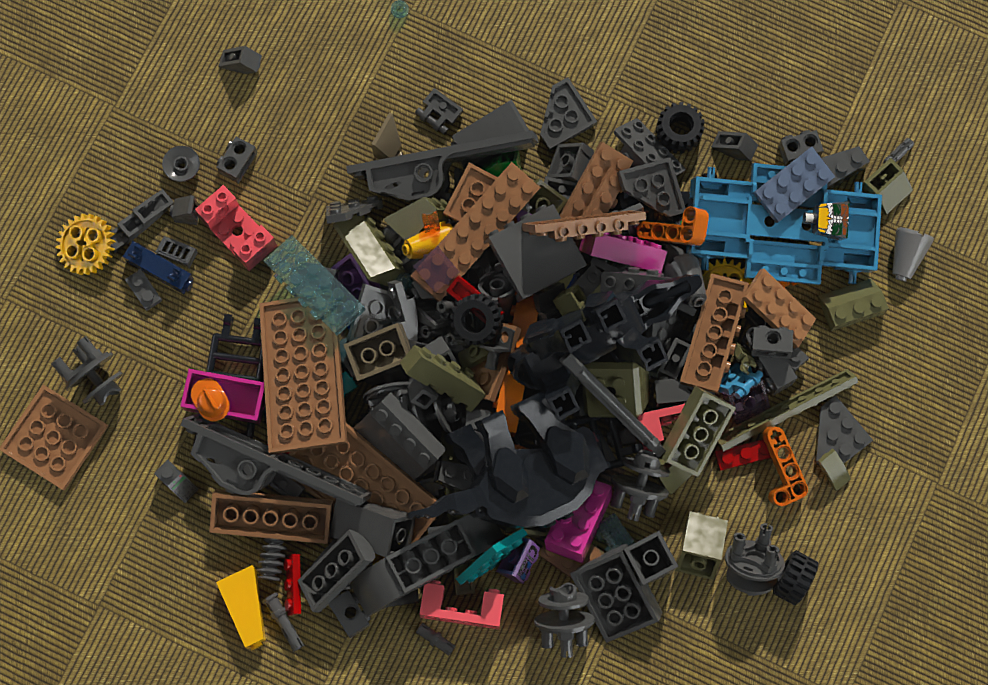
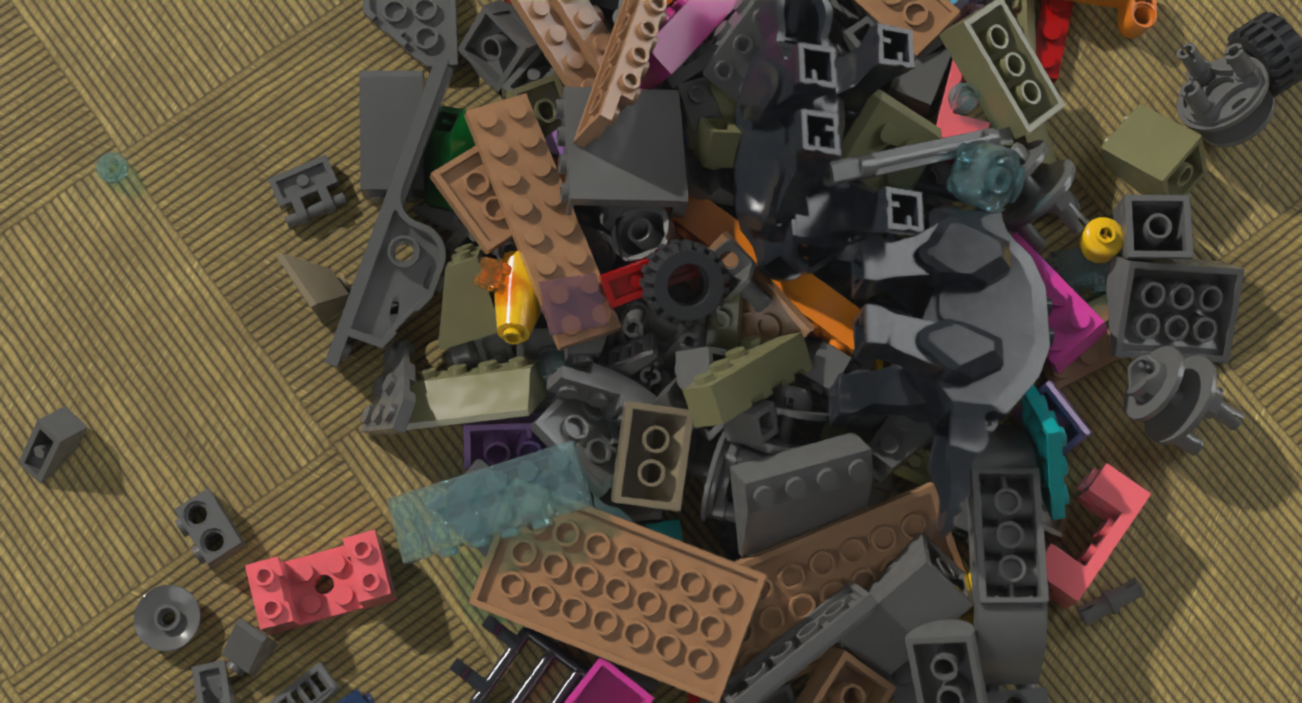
camera: 60 degrees left, 0 degrees up
(625, 448) = (986, 175): none -> clear light blue brick
(630, 526) = (1101, 240): none -> yellow head
(671, 415) = (959, 93): none -> clear light blue plate

